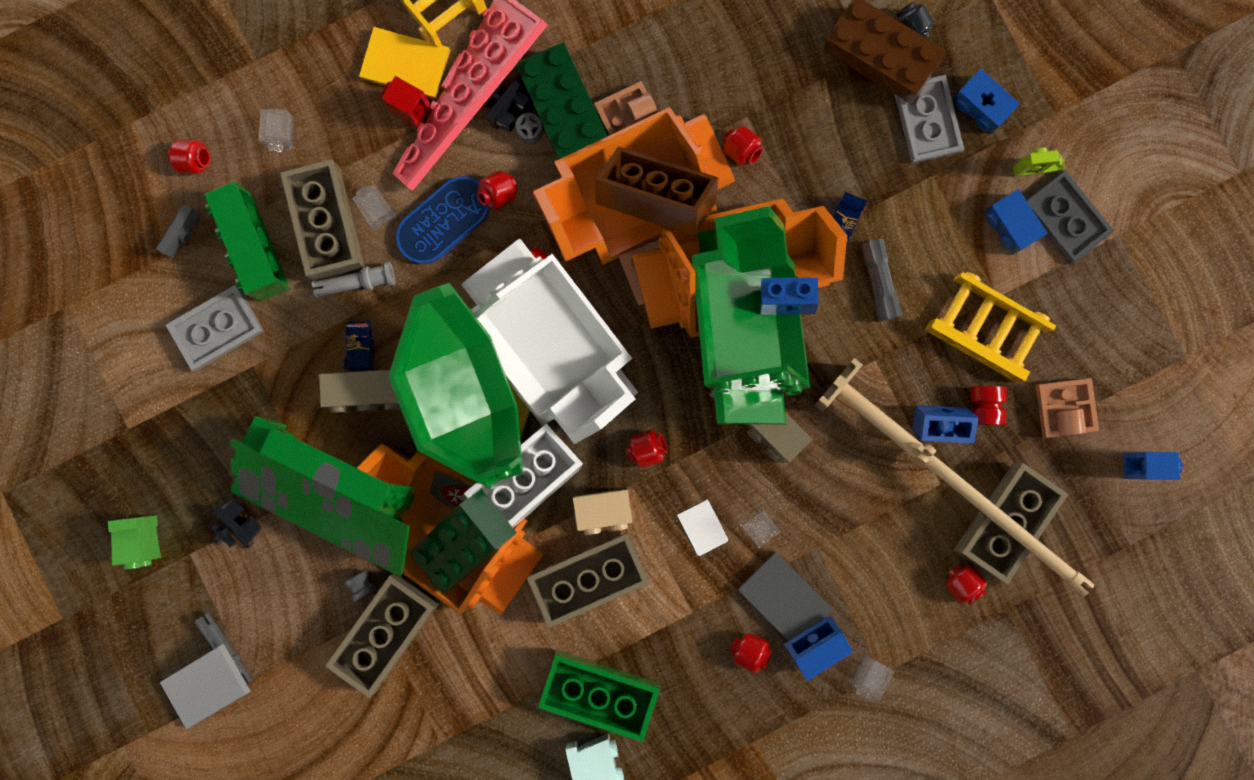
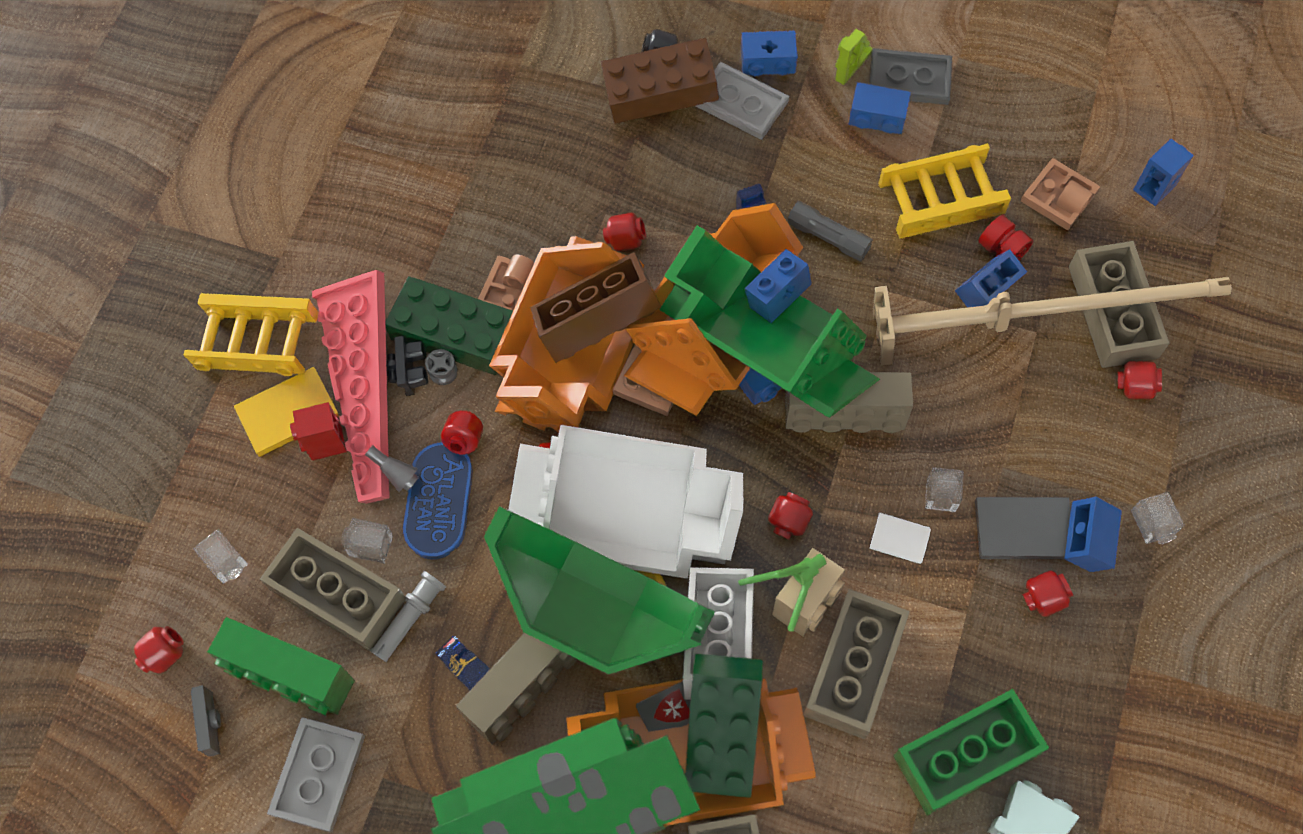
camera: 40 degrees left, 20 degrees down
(430, 180) = (398, 472): none -> flat silver cone
(603, 500) = (802, 573): none -> bright green plant

